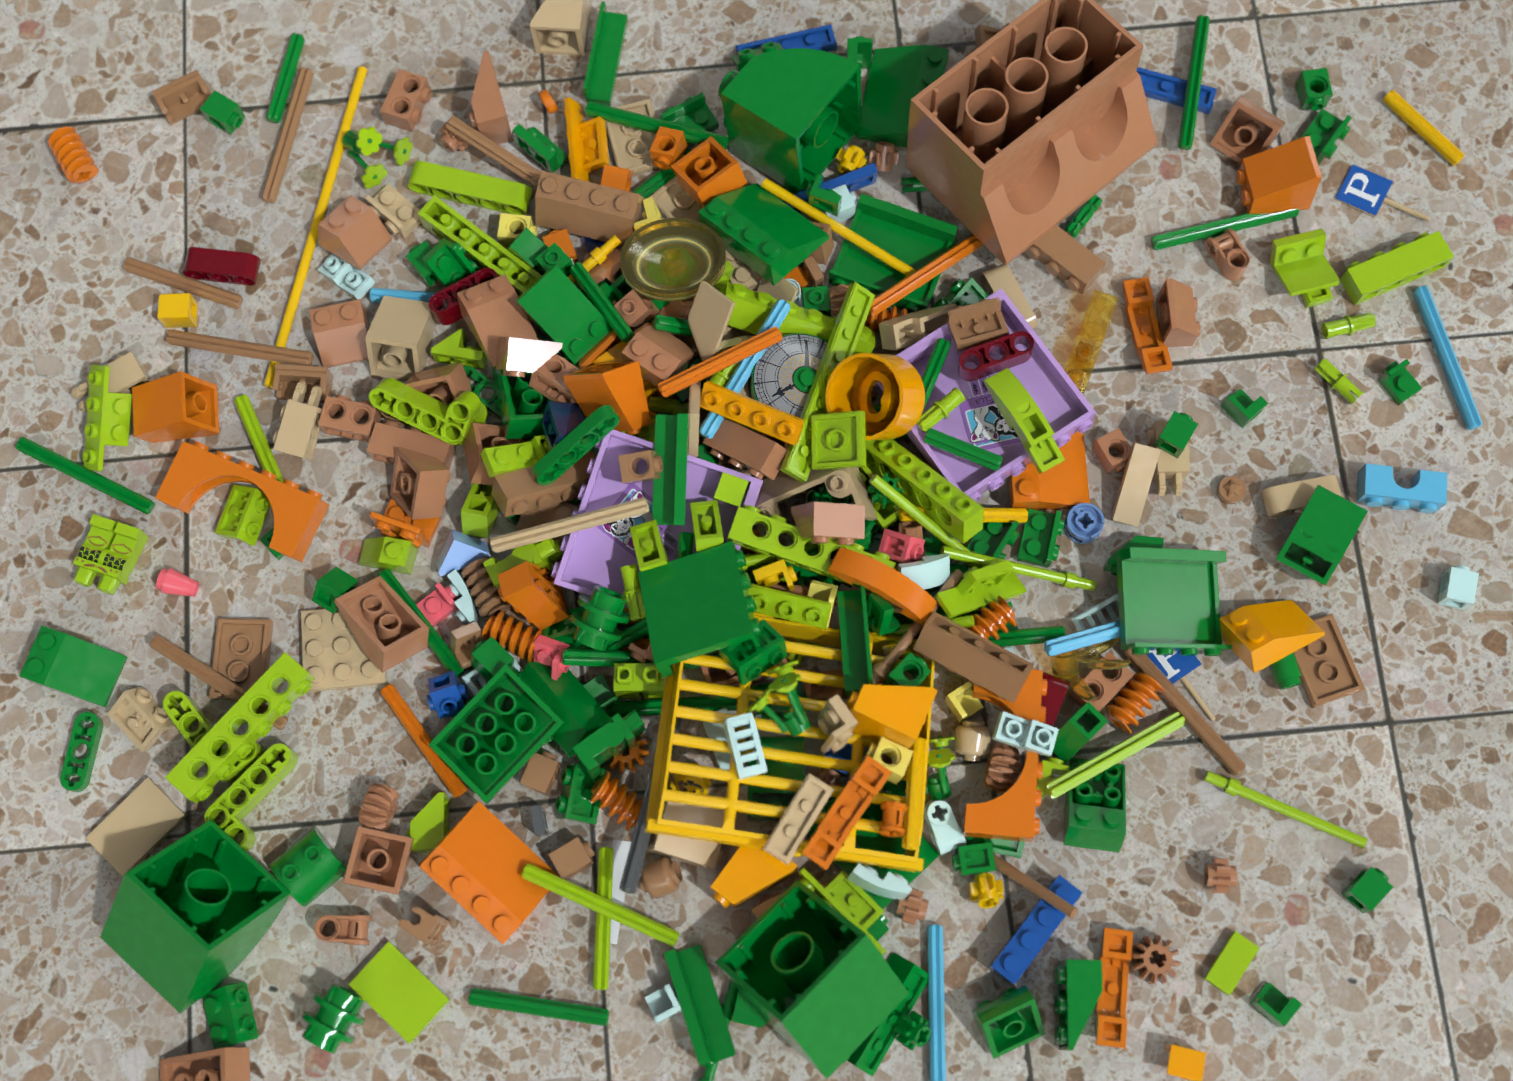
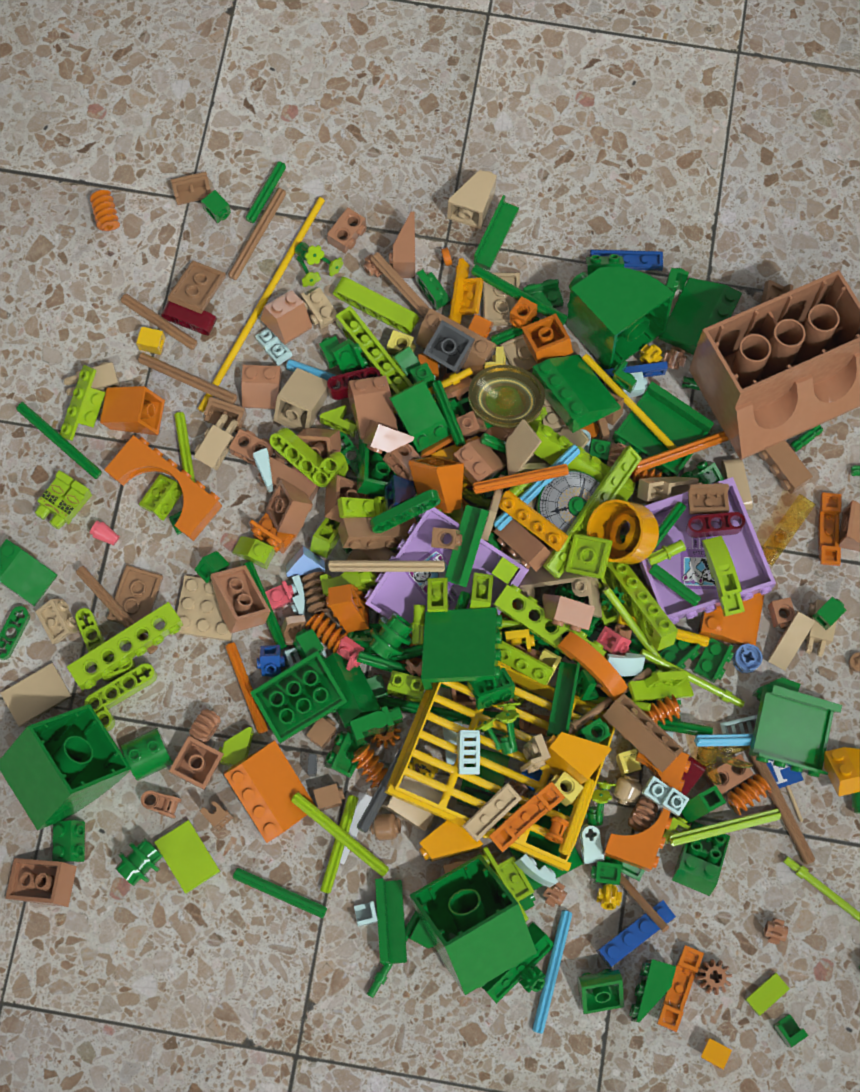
camera: 10 degrees right, 0 degrees up
(222, 224) = (196, 286): none -> medium nougat tile
(369, 433) = (263, 464): none -> light aqua slope
(580, 214) = (449, 347): none -> dark grey slope

